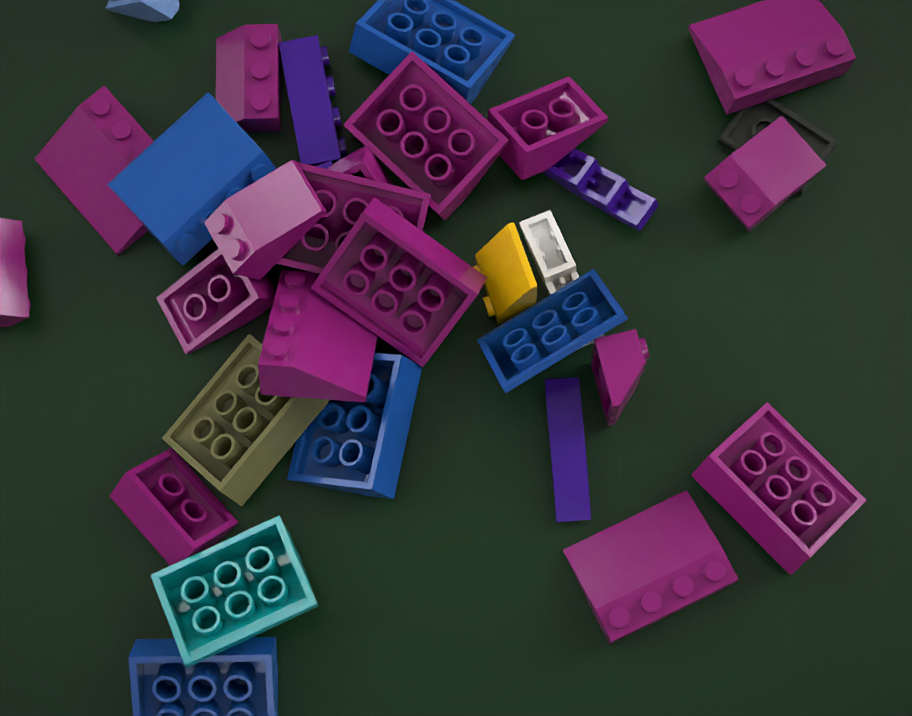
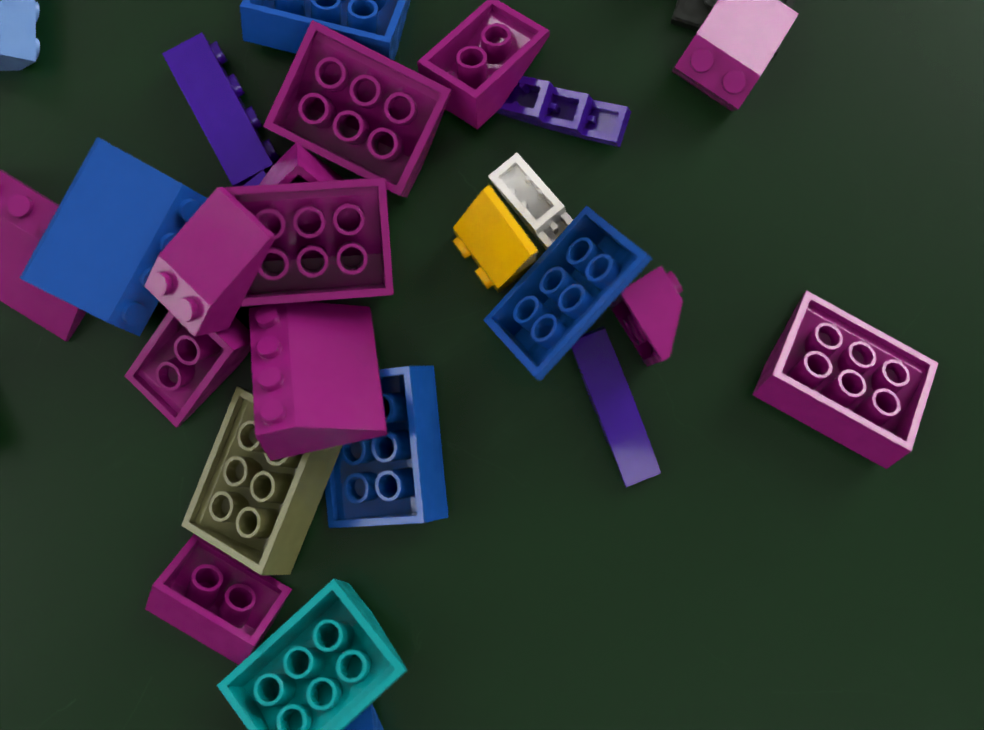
camera: 20 degrees left, 10 degrees up
(251, 76) = (145, 102): magenta slope -> none
(399, 282) = (381, 286): magenta slope -> none
(649, 566) = (739, 505): magenta slope -> none

